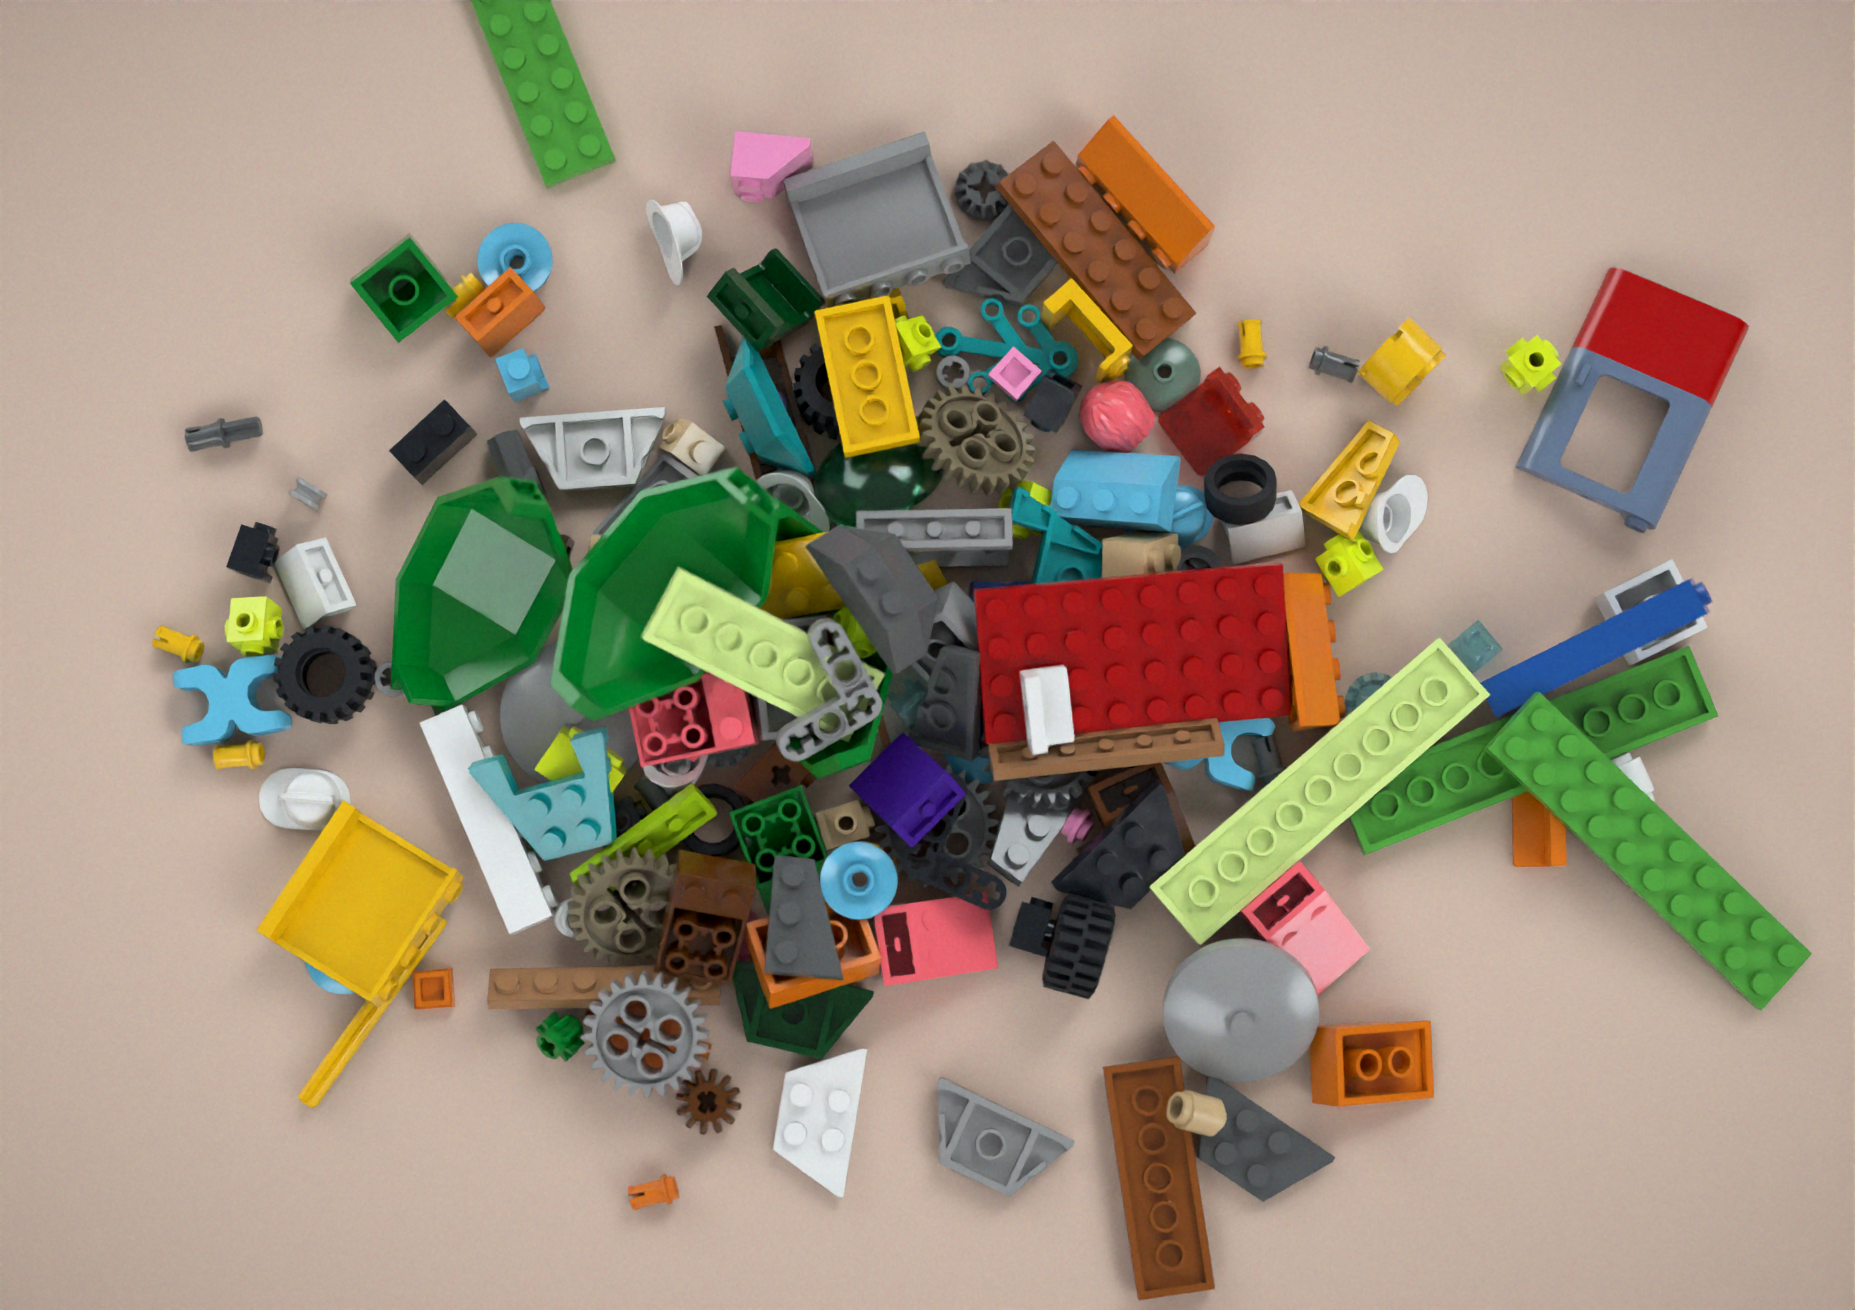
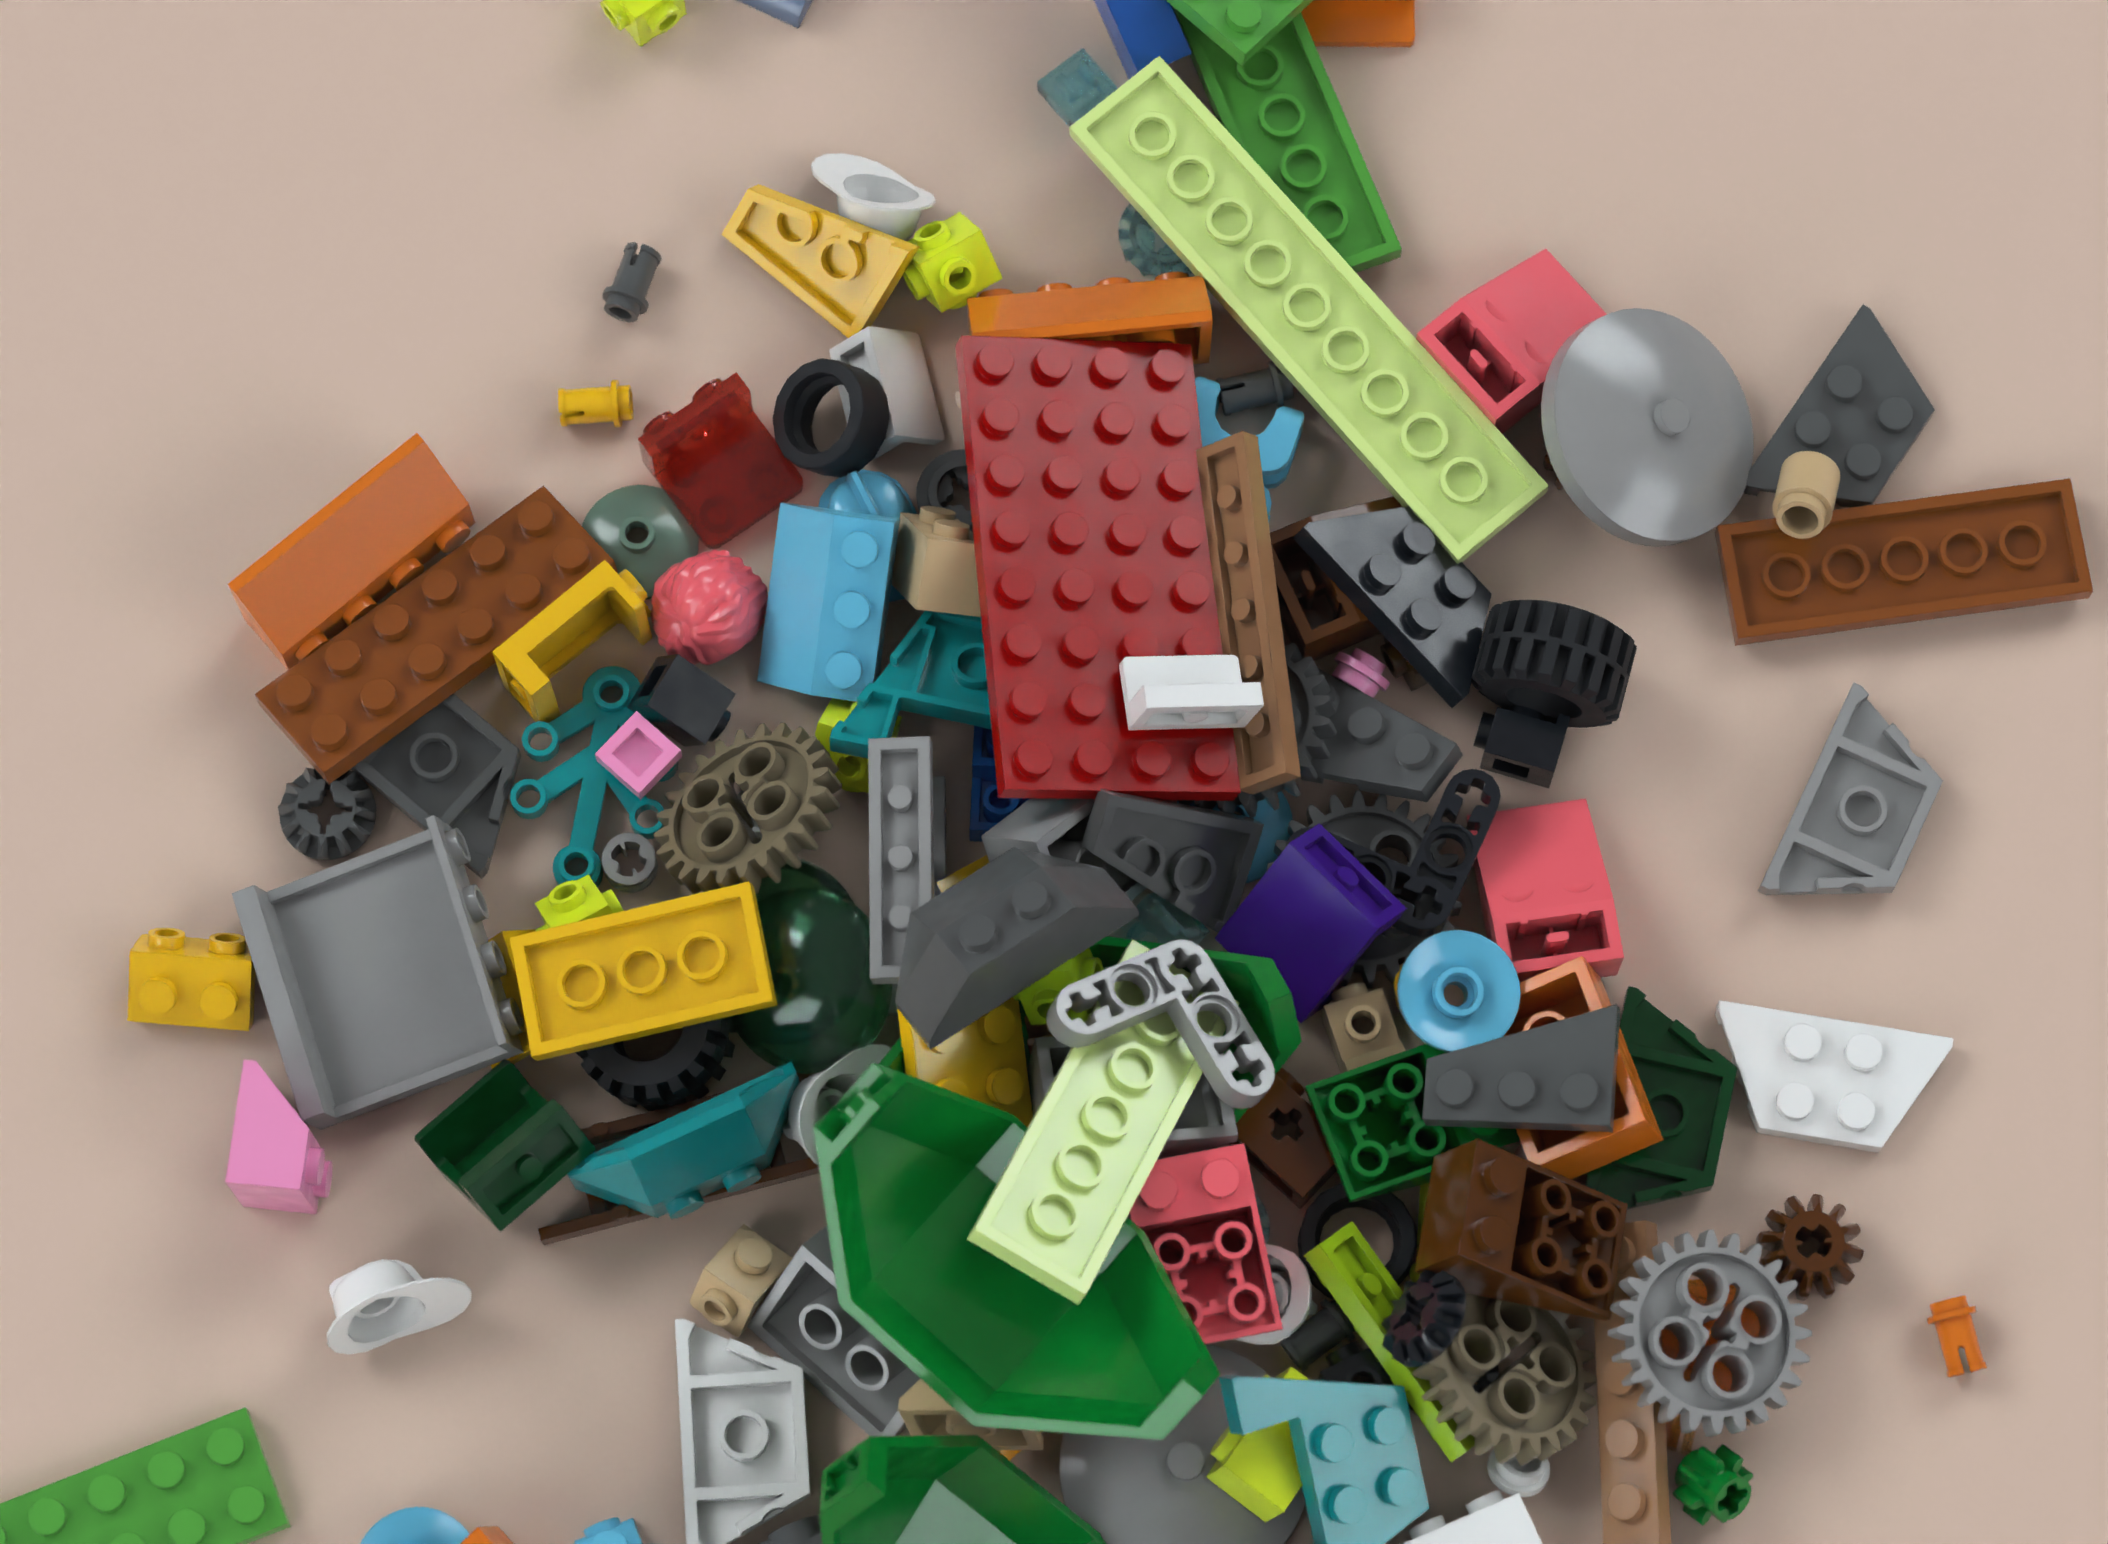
camera: 90 degrees left, 10 degrees down
(642, 862) = (1440, 1304): none -> black gear
(875, 111) = (191, 980): none -> yellow bracket
(1371, 1063) = (1720, 249): orange slope -> none
(1400, 360) = (635, 174): yellow brick -> none

